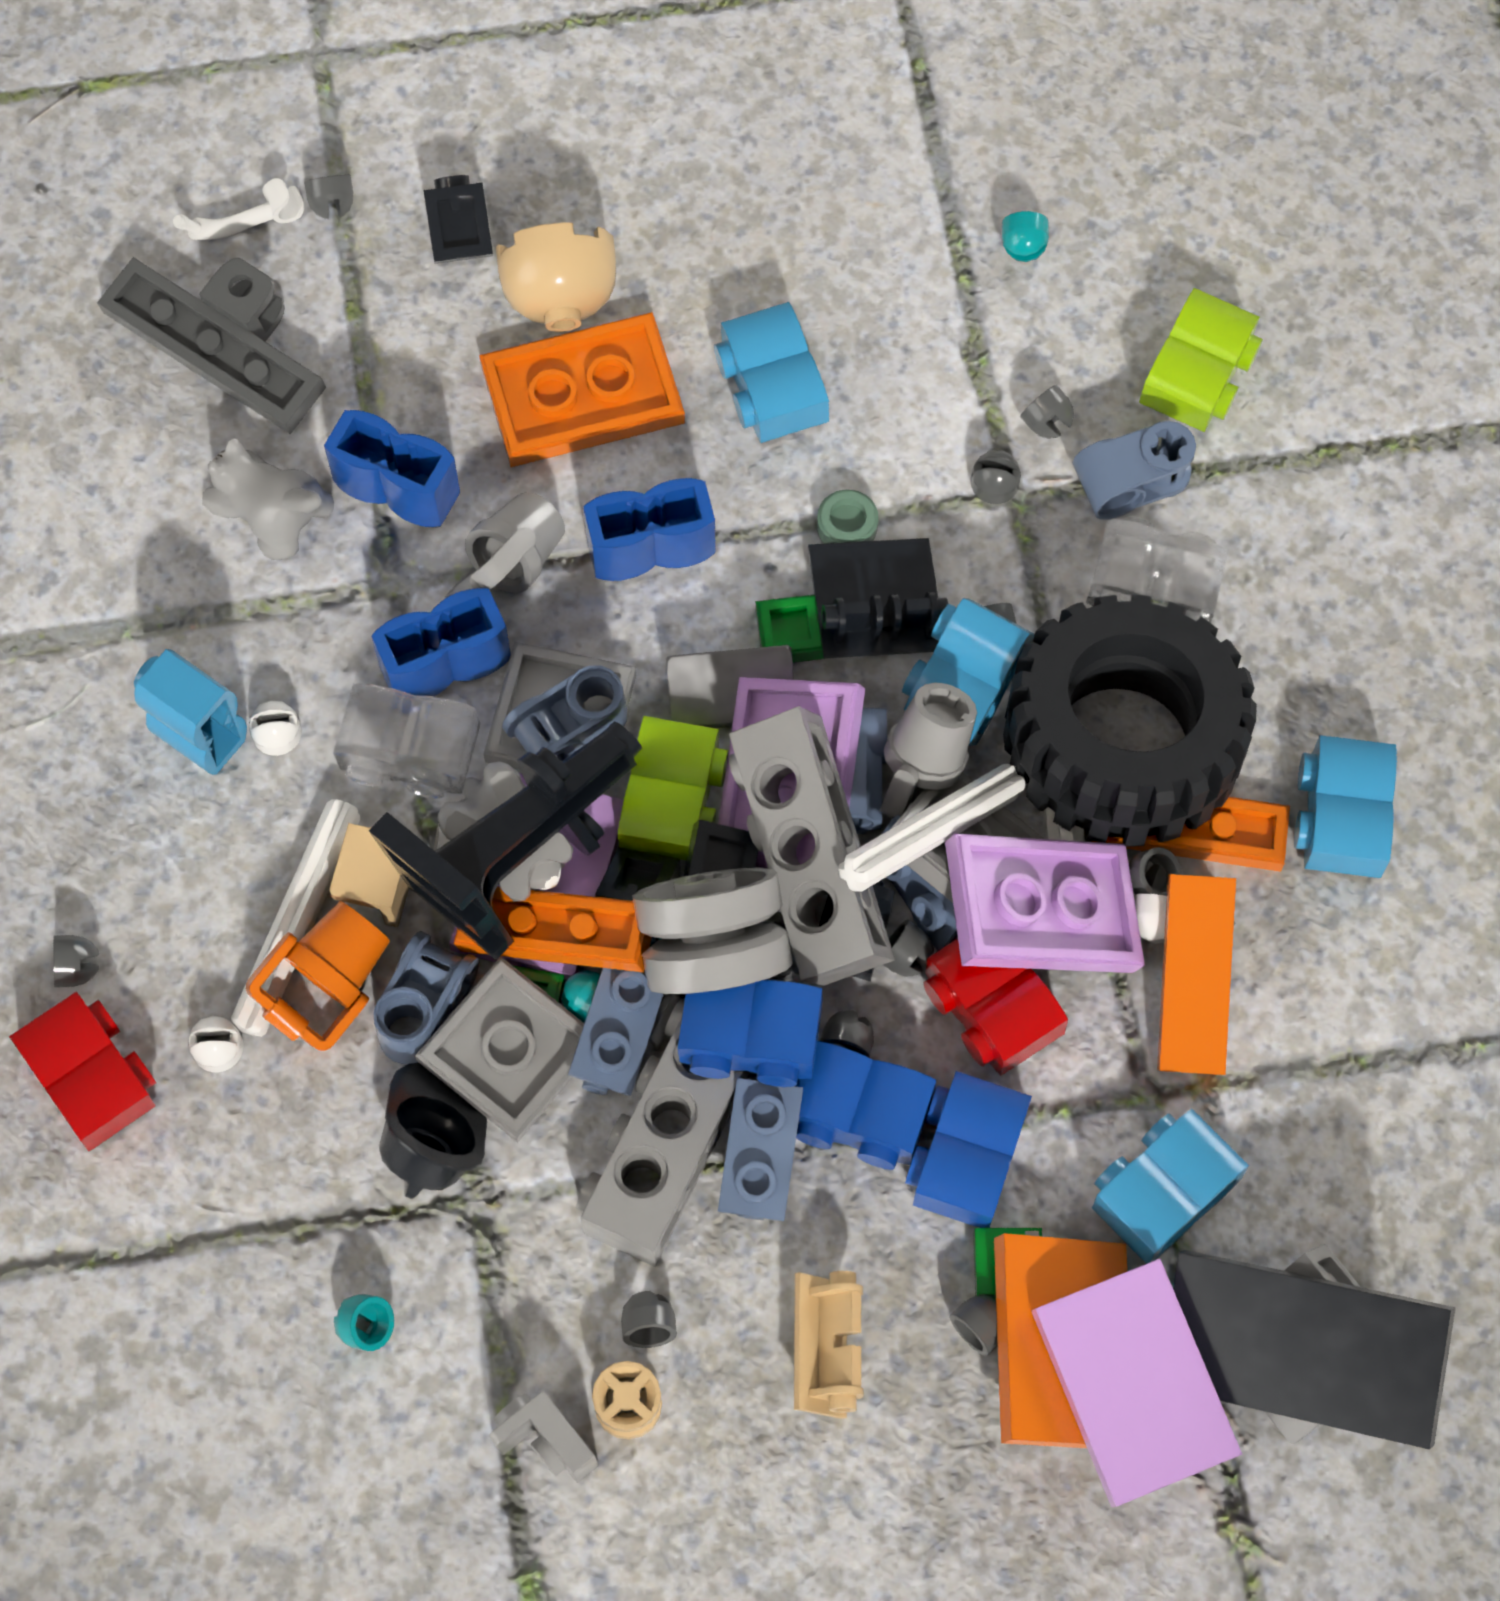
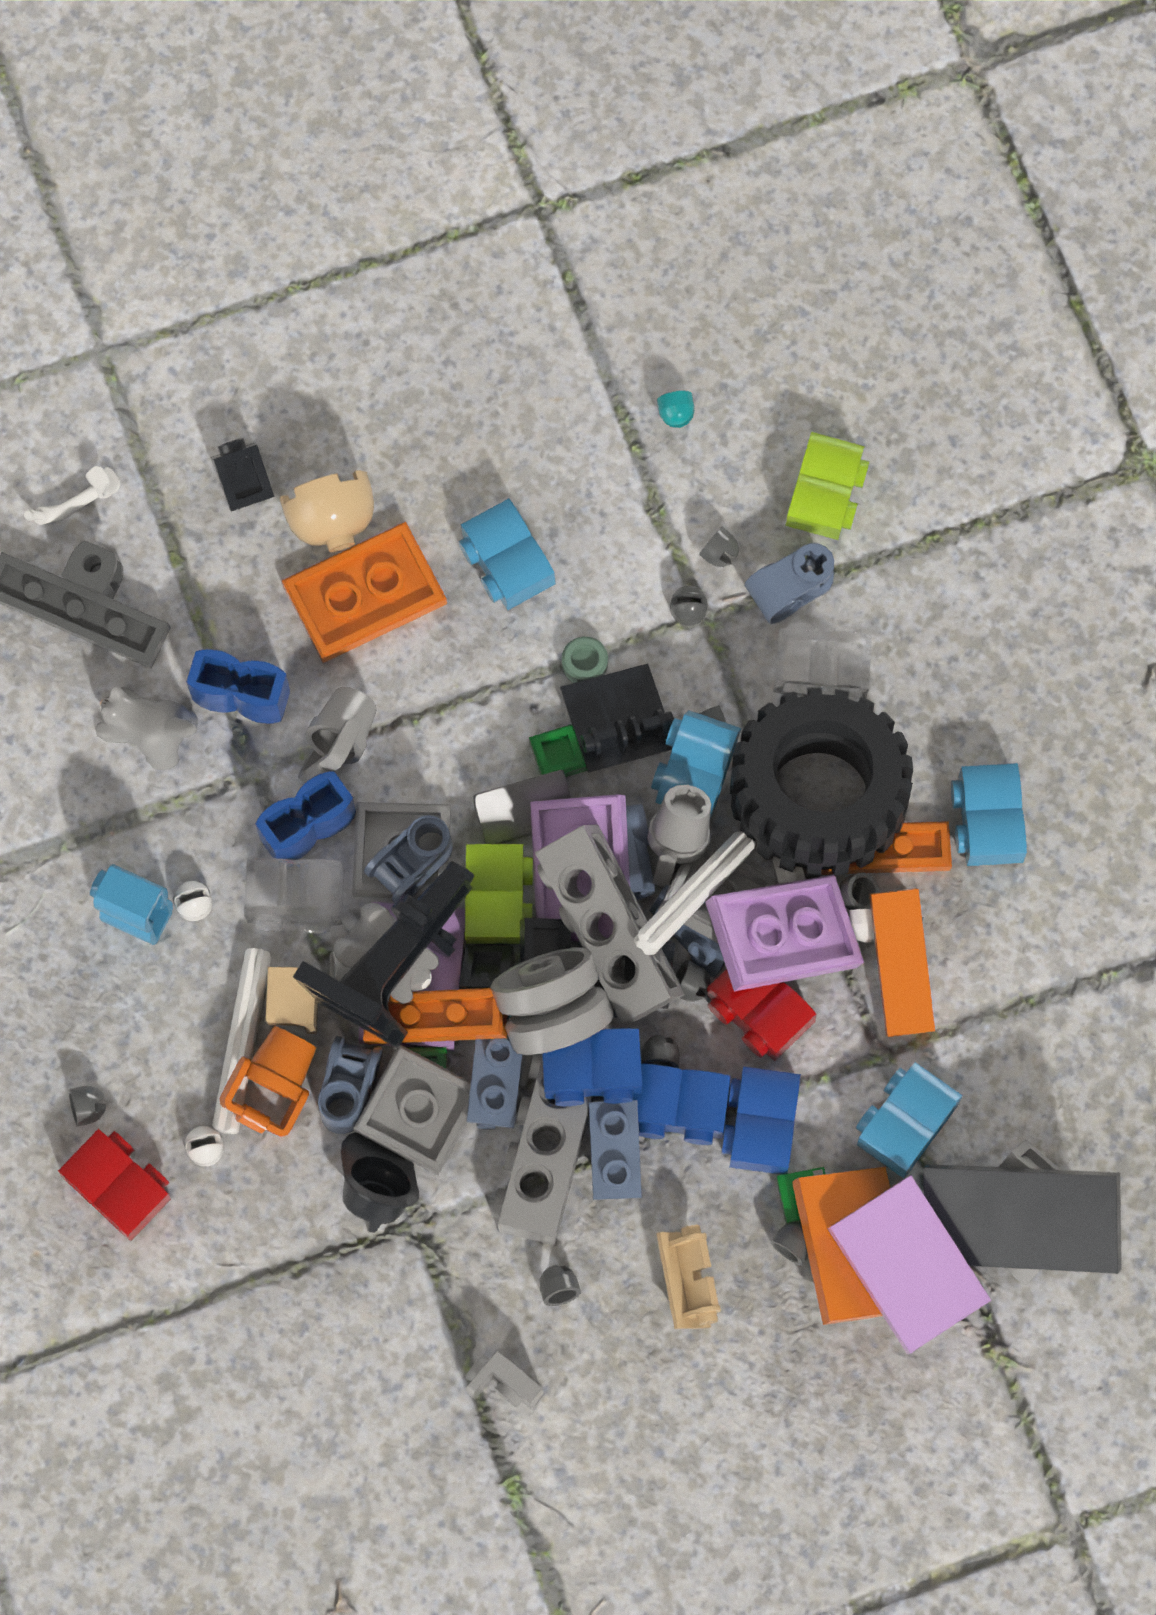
camera: 10 degrees left, 5 degrees up
(329, 190) = (137, 467): dark grey hinge -> none
(371, 1309) = (359, 1315): teal hinge -> none
(579, 993) = (462, 1059): teal hinge -> none
(619, 1390) = (553, 1333): tan wheel -> none
(661, 528) = (451, 695): blue brick -> none

